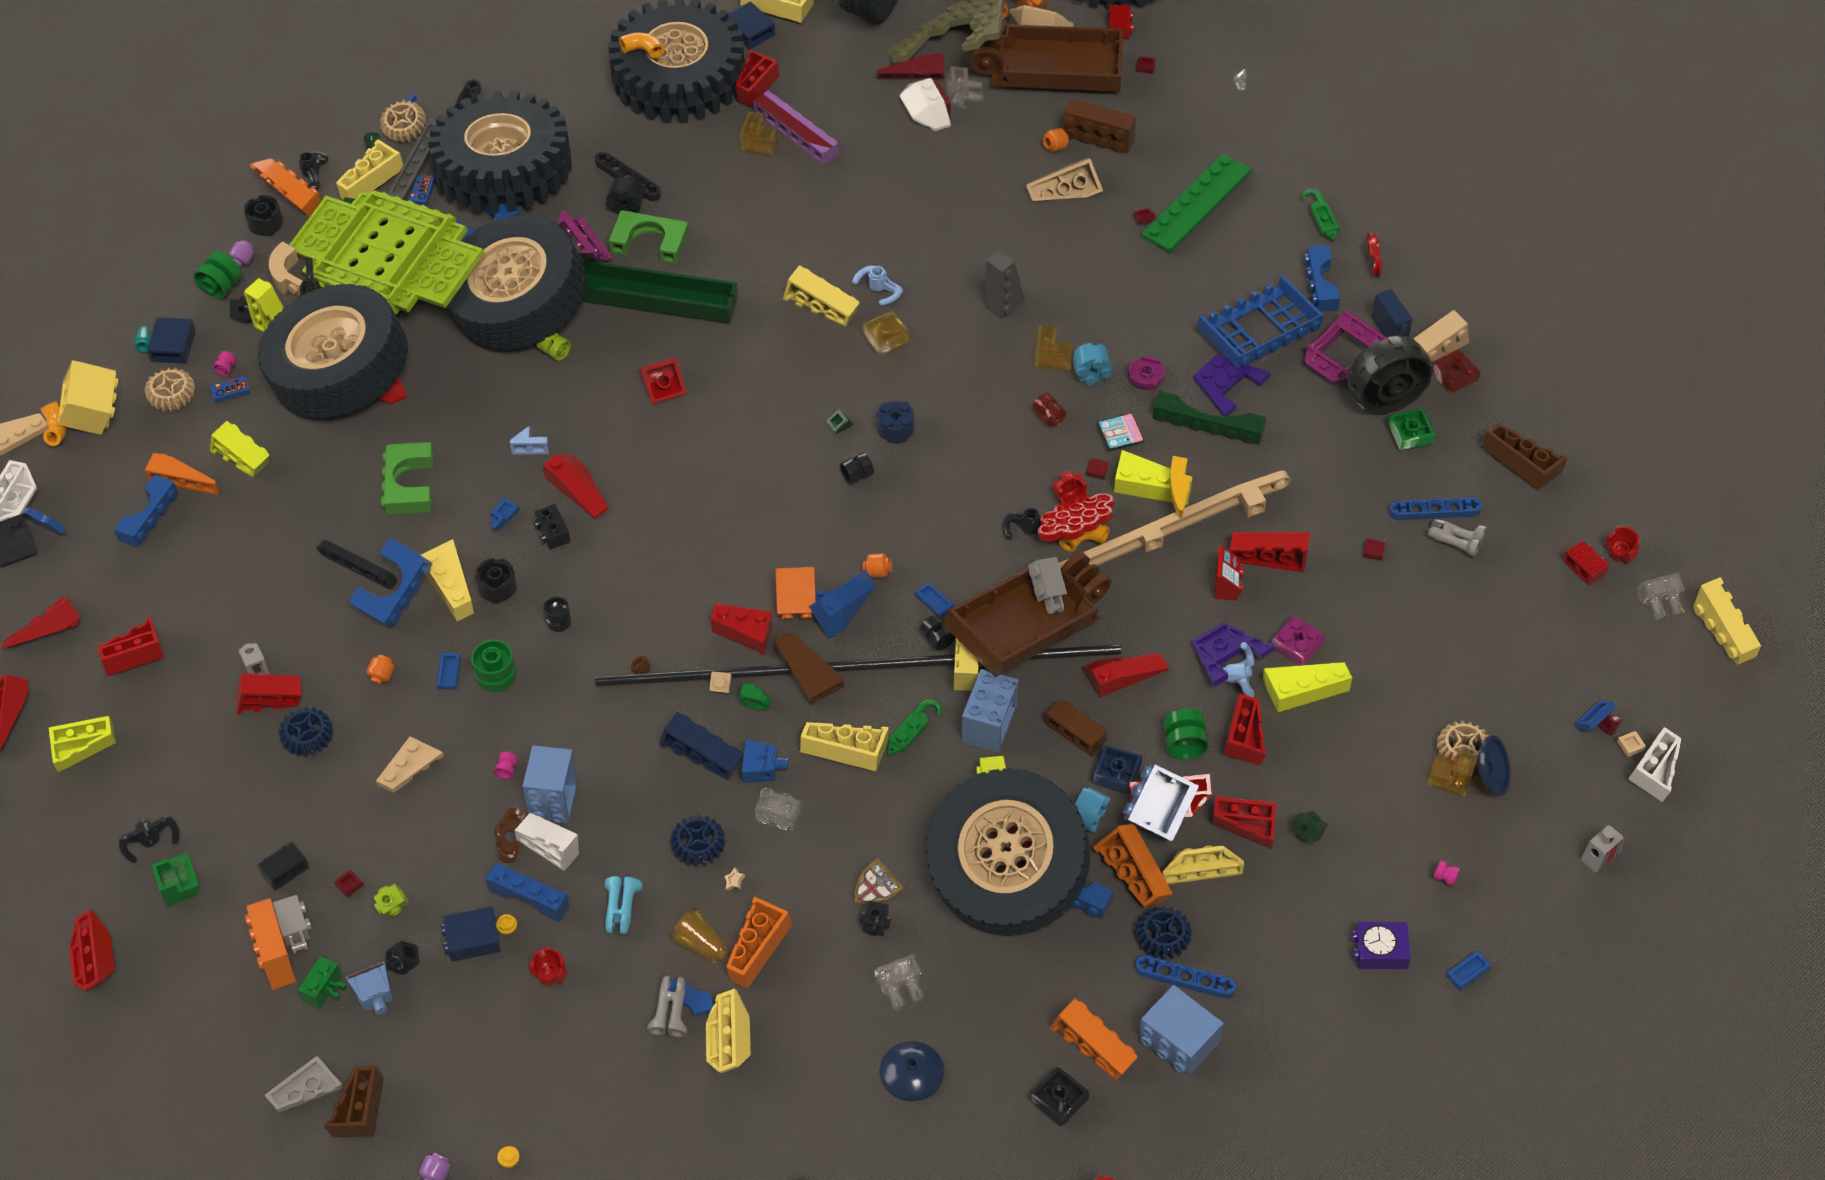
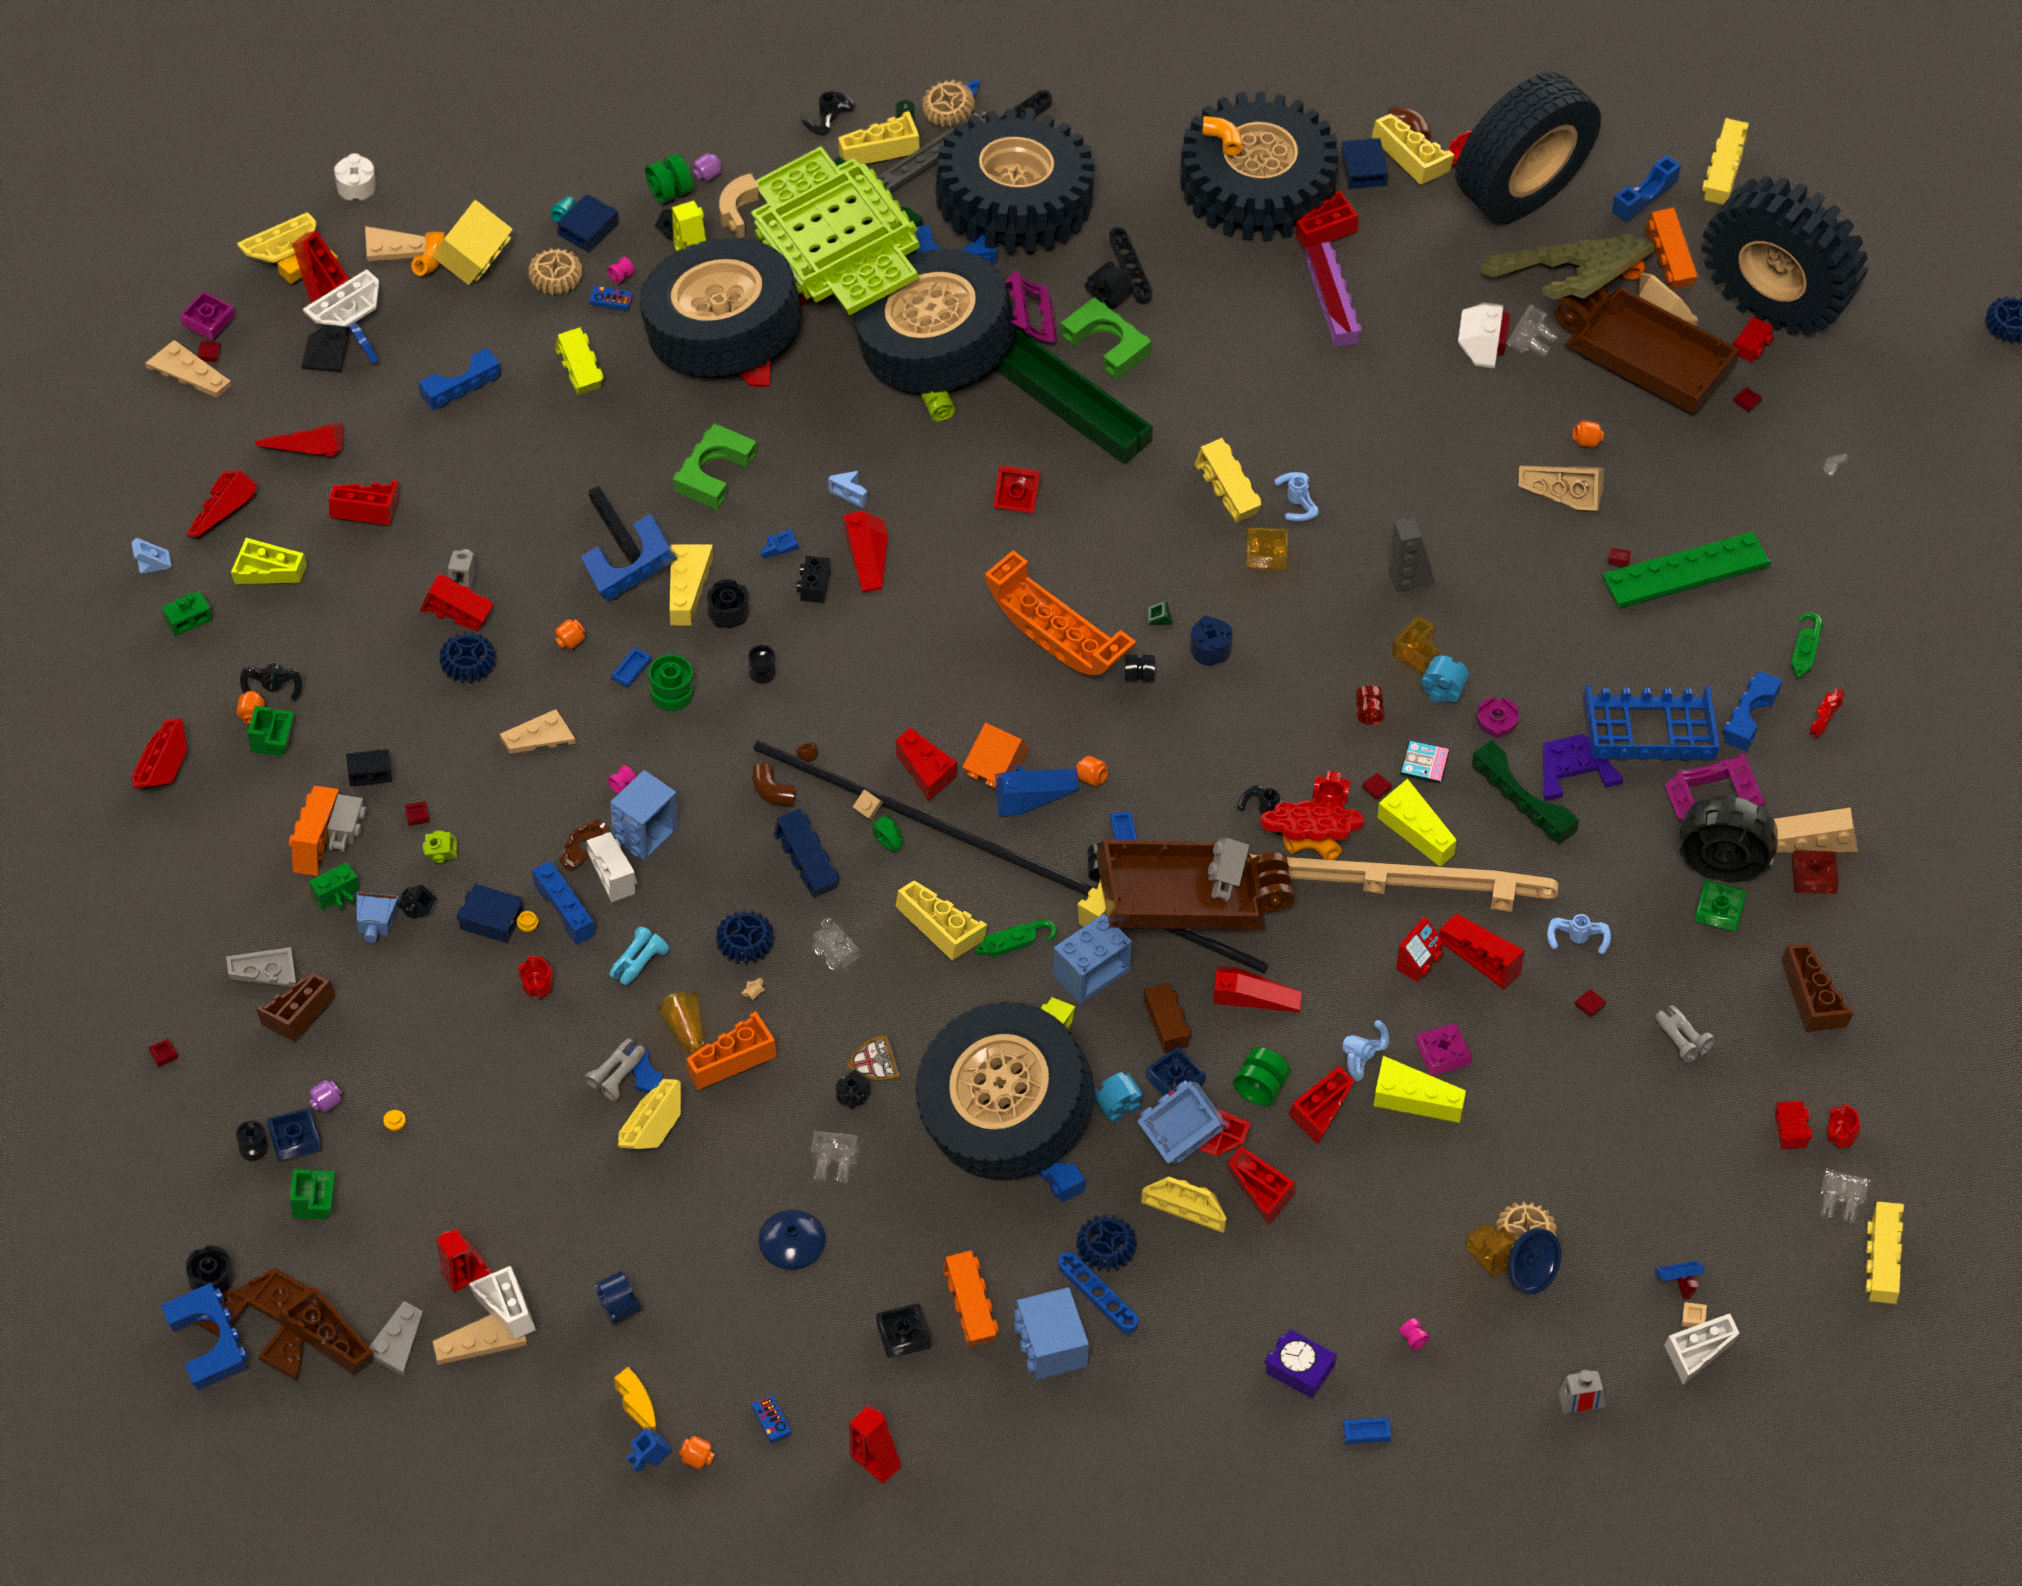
camera: 30 degrees right, 0 degrees up
(33, 818) = (186, 613): none -> green brick
(141, 868) = (246, 705): none -> orange head
(180, 473) = (510, 357): orange slope -> none
(263, 215) = (752, 138): black brick -> none
(287, 185) = (794, 117): orange wedge -> none
(310, 283) = (748, 229): black piece -> none
(422, 190) = (920, 185): blue tile -> none
(633, 711) = (768, 789): none -> reddish brown cylinder
(756, 137) = (1284, 283): clear yellow brick -> none
(761, 762) = (851, 897): blue torso -> none
(769, 467) = (1051, 621): none -> orange slope
(809, 671) = (953, 837): reddish brown slope -> none
(917, 68) = (1504, 291): dark red slope -> none
(1099, 126) = (1640, 441): reddish brown brick -> none
(1134, 864) = (1122, 1168): orange wedge -> none
(1179, 484) = (1432, 839): yellow slope -> none
(1221, 645) = (1358, 1014): dark purple wing -> none
(1309, 826) = (1315, 1223): clear green brick -> none
(1326, 500) = (1579, 931): none -> light blue piece
(1391, 315) = (1787, 785): dark blue brick -> none
(1443, 504) = (1678, 987): blue beam -> none

